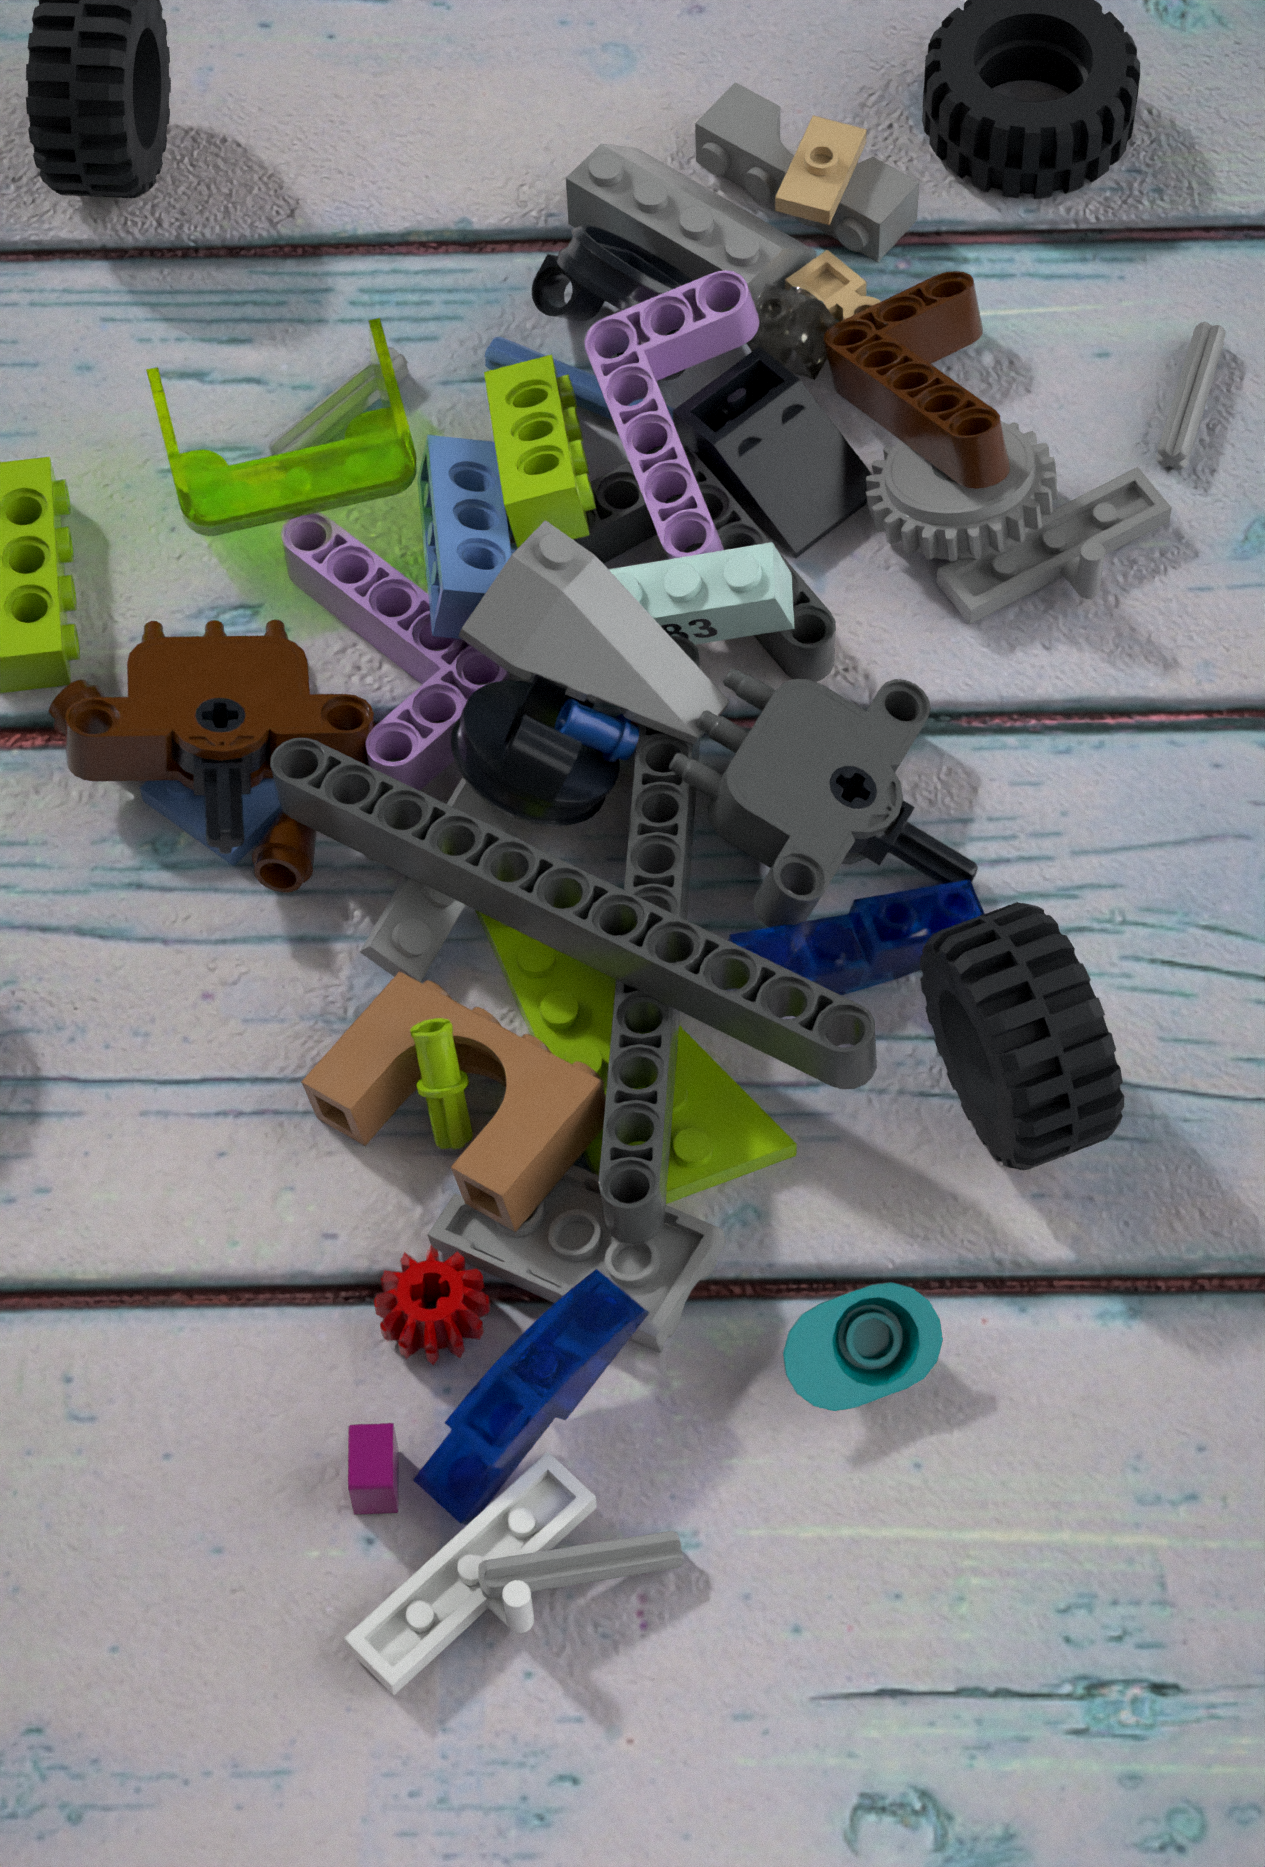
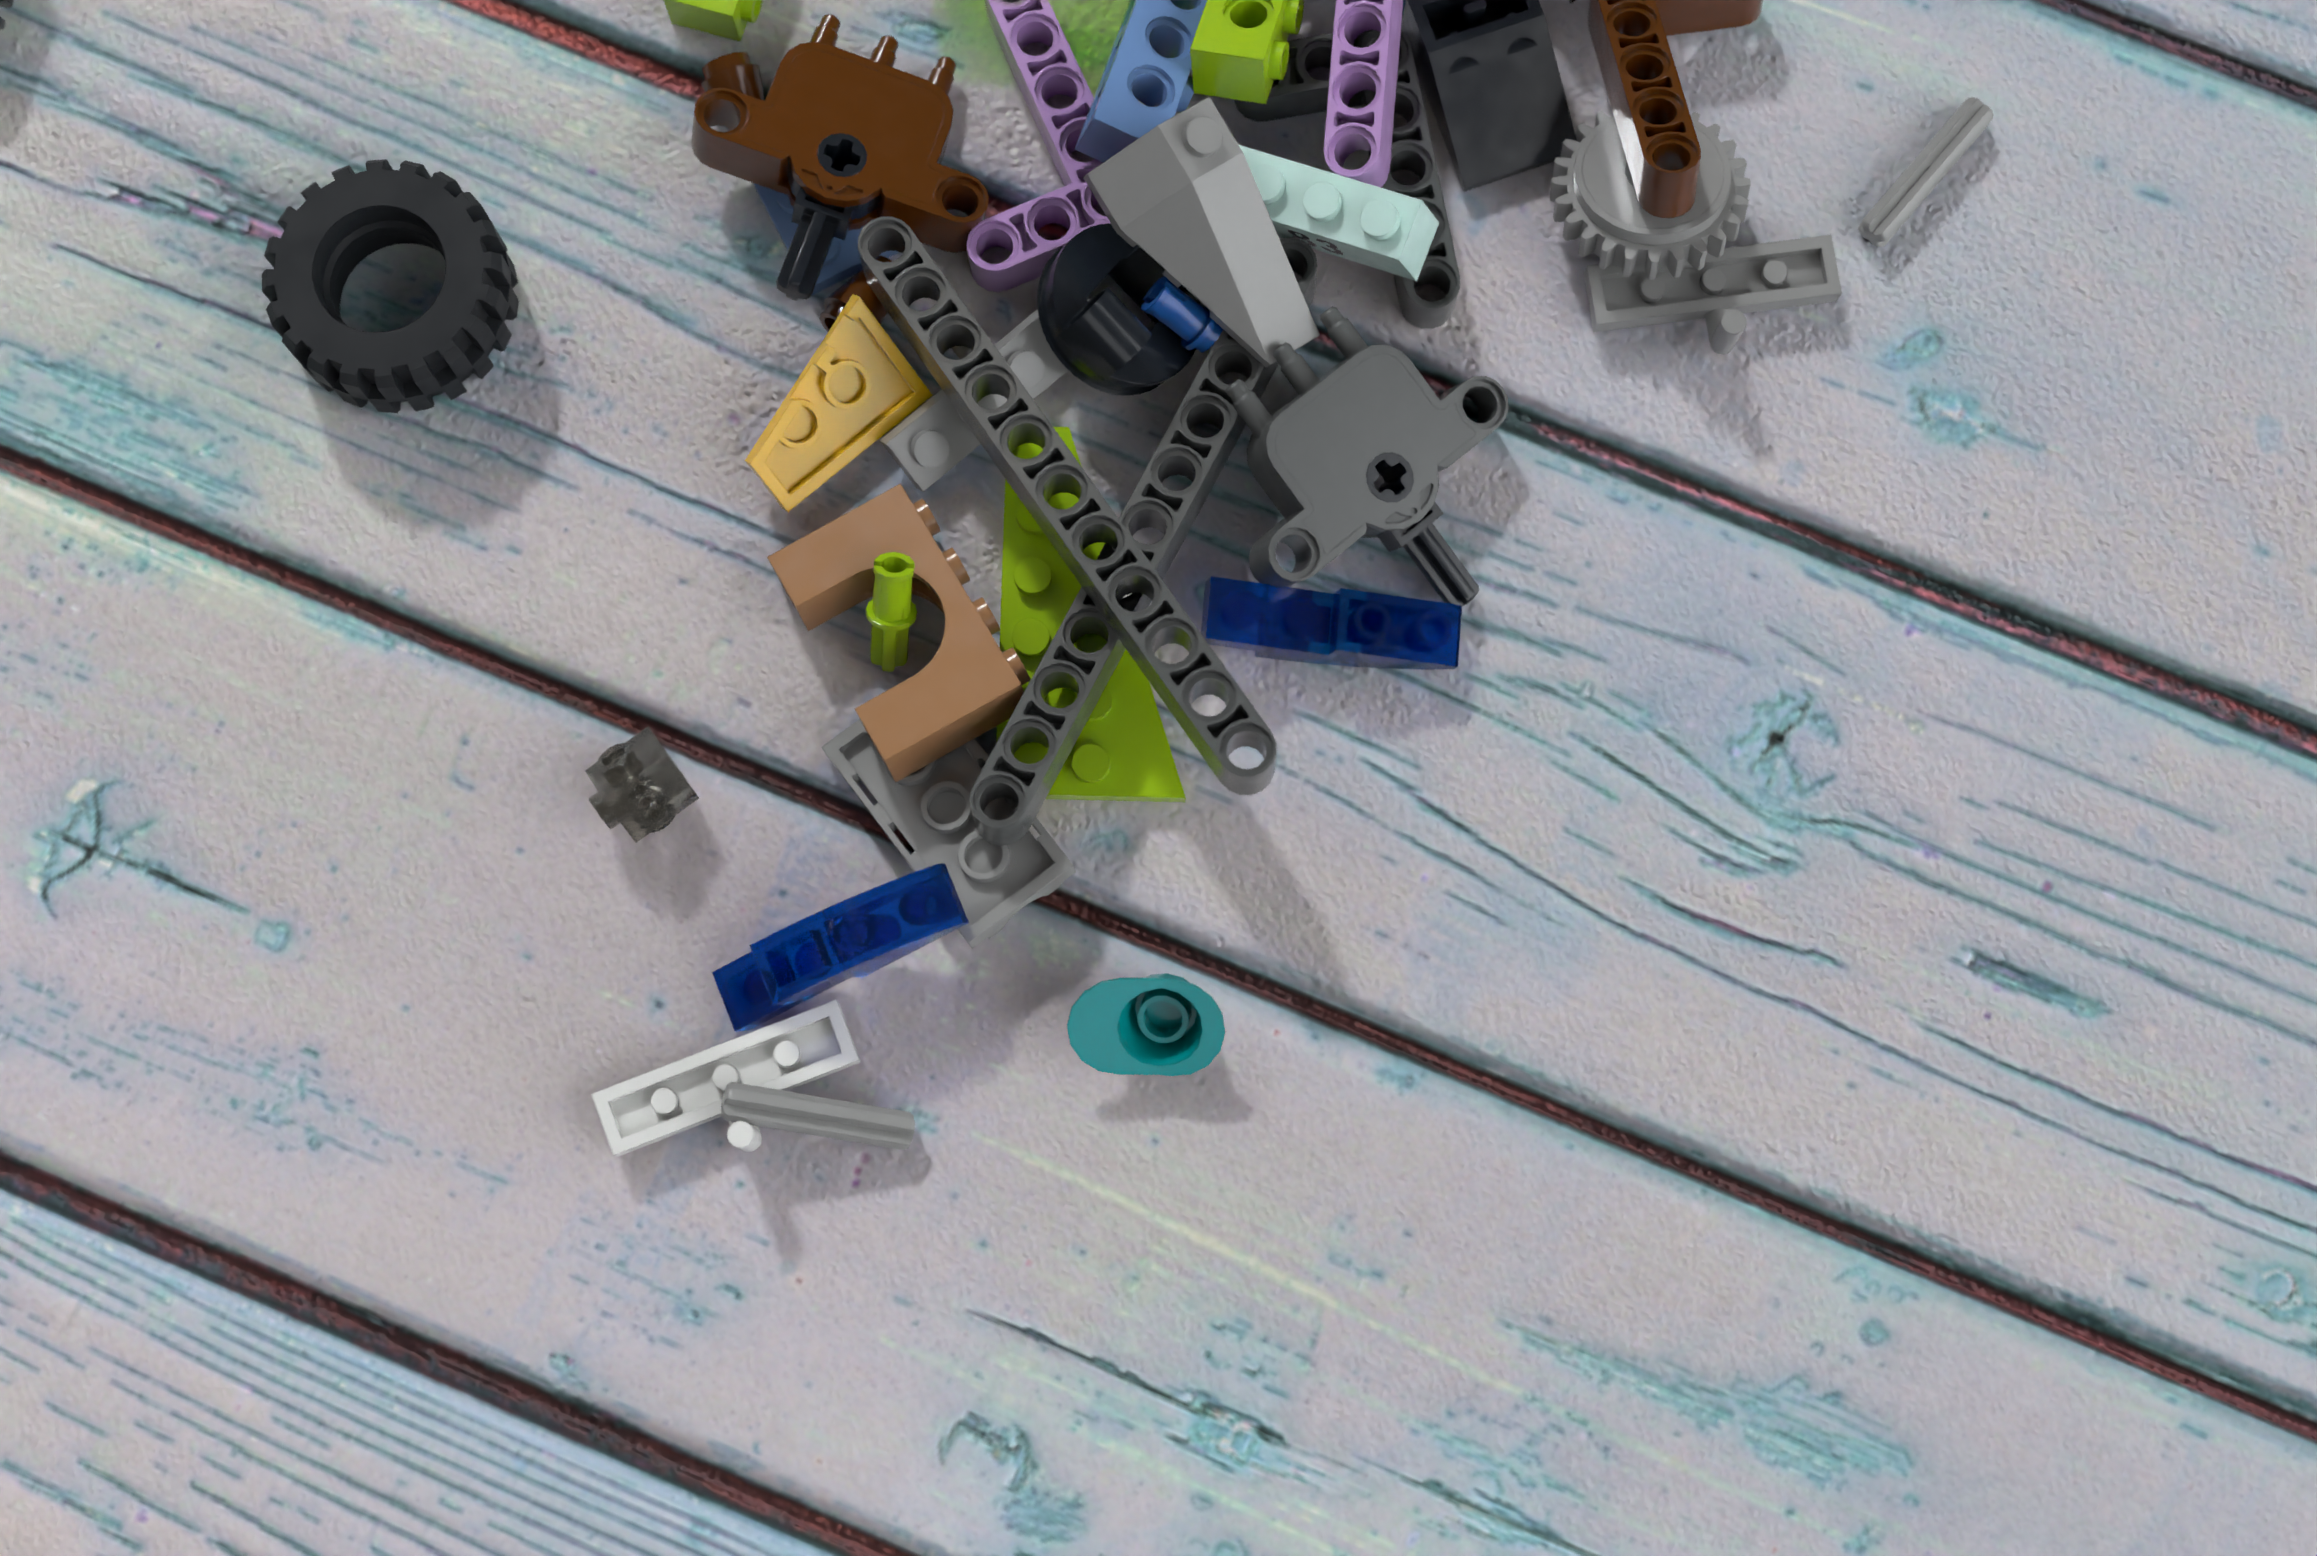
camera: 20 degrees right, 20 degrees up
(266, 1334) = (639, 786): none -> clear smoke brick
(306, 937) = (837, 407): none -> yellow wing
(373, 1468) = (681, 948): magenta piece -> none
(456, 1312) = (790, 795): red gear -> none
(1022, 1035) = (1417, 805): black tyre -> none

